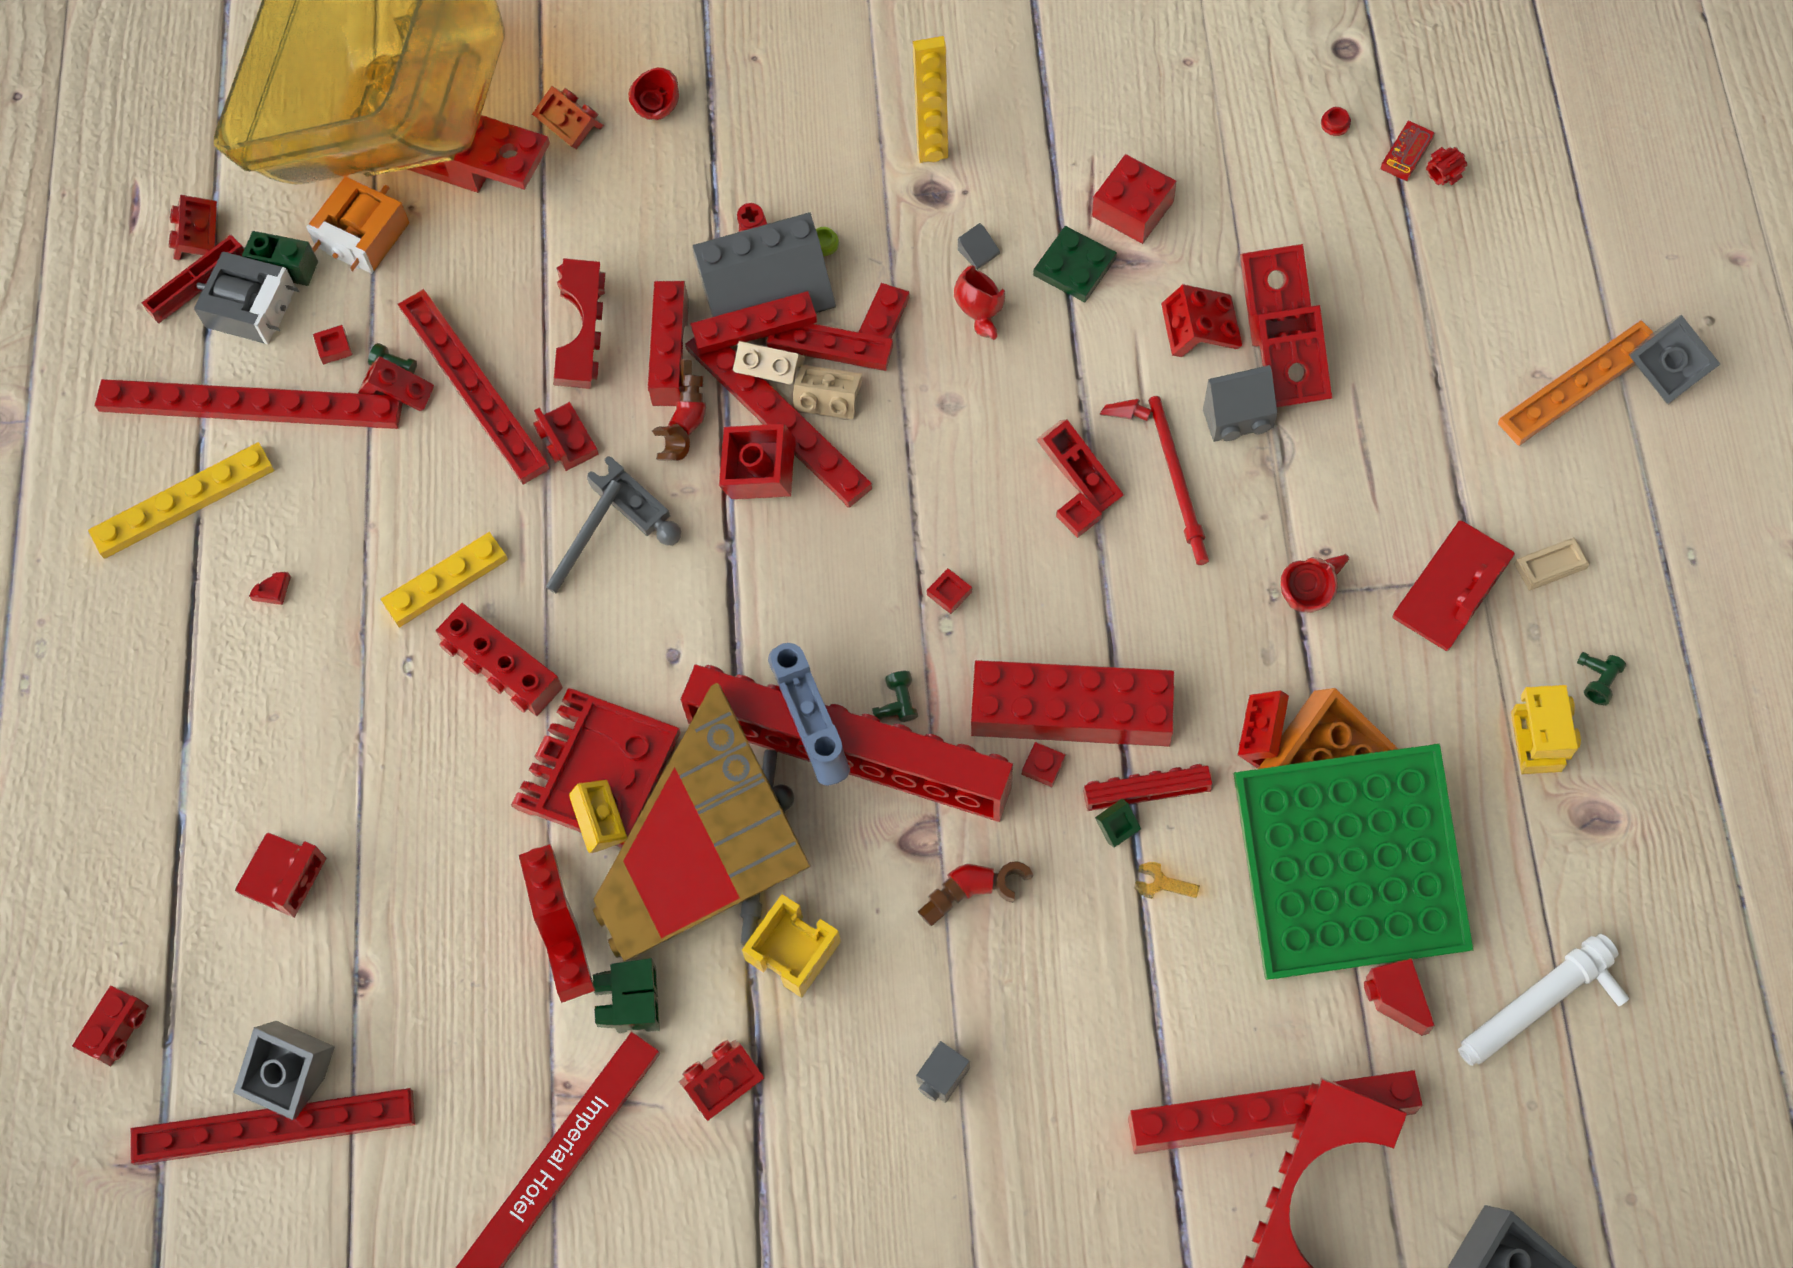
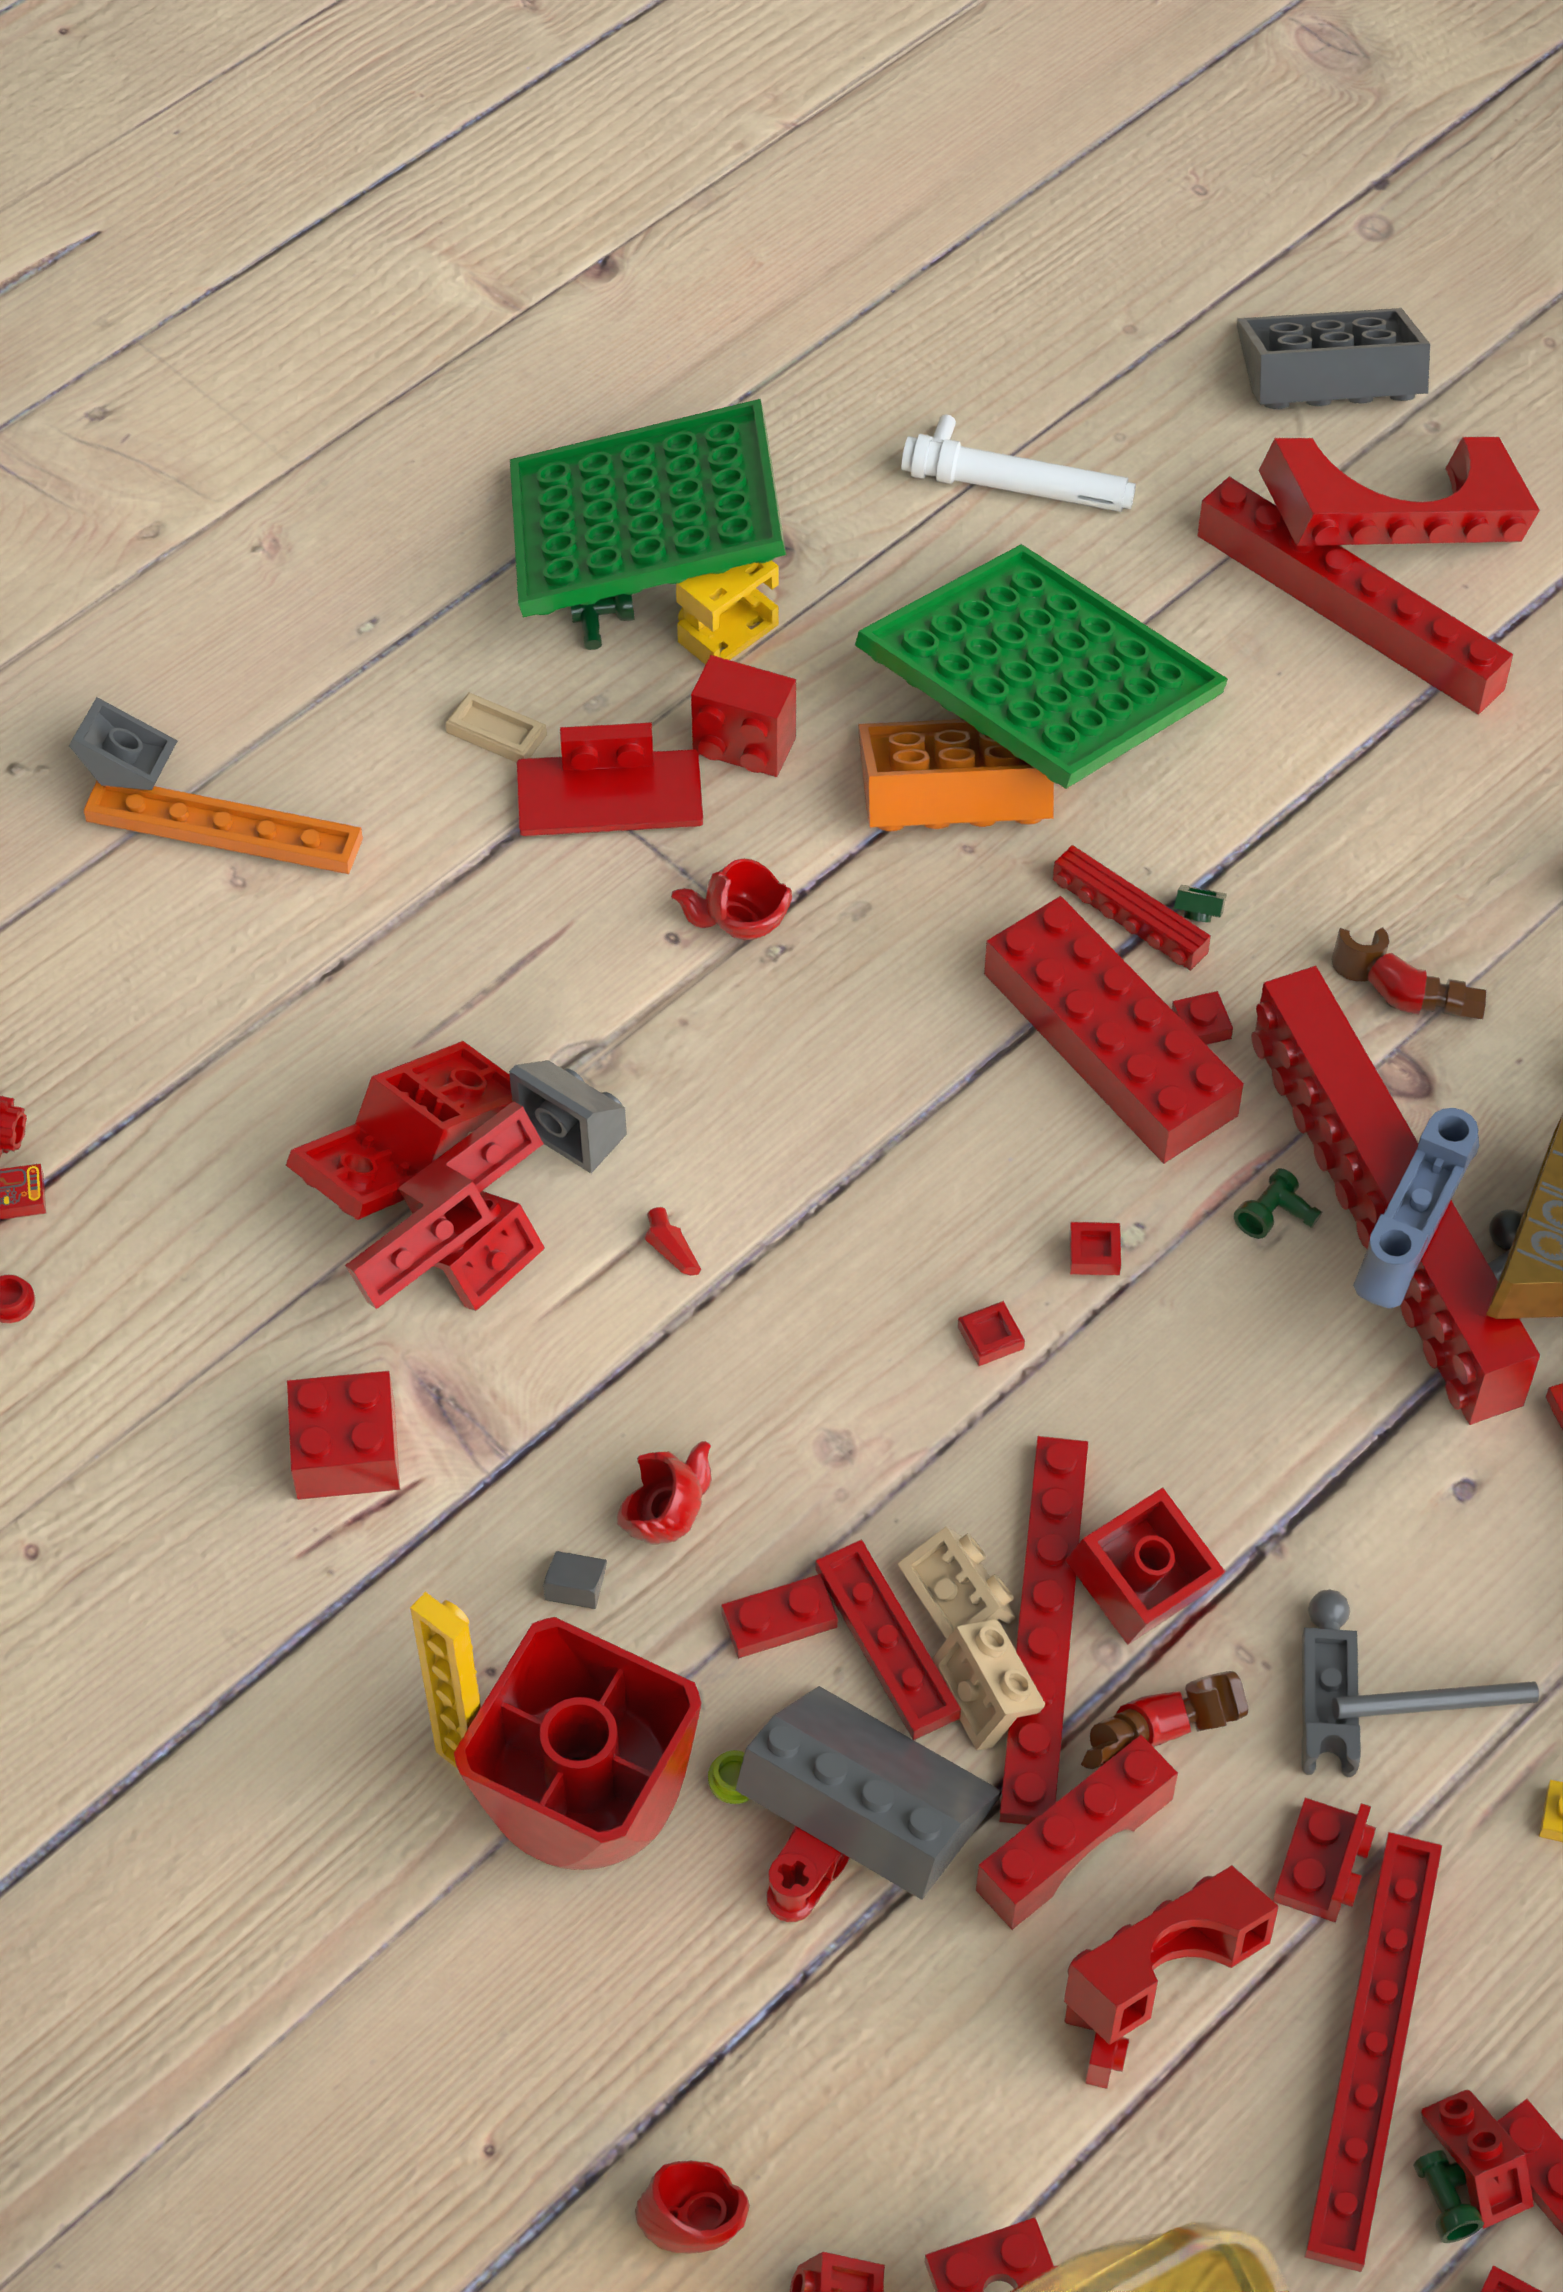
camera: 135 degrees left, 10 degrees down
(753, 322) = (952, 1740): red plate -> none
(871, 155) = (580, 1748): none -> red piece
(948, 512) = (991, 1333): none -> red tile
(1074, 264) = (499, 1449): dark green plate -> none
(1078, 515) = (866, 1188): red plate -> none
(1079, 464) = (800, 1233): red slope -> none
(1162, 882) = (1217, 833): clear yellow bar -> none
(1193, 532) = (773, 1067): red bar -> none
(1219, 300) = (444, 1205): none -> red bracket
(1263, 726) = (965, 832): red bracket -> none
(1399, 995) = (1128, 570): red slope -> none
(1444, 672) = (743, 715): none -> red brick
(1653, 727) = (644, 508): none -> green plate

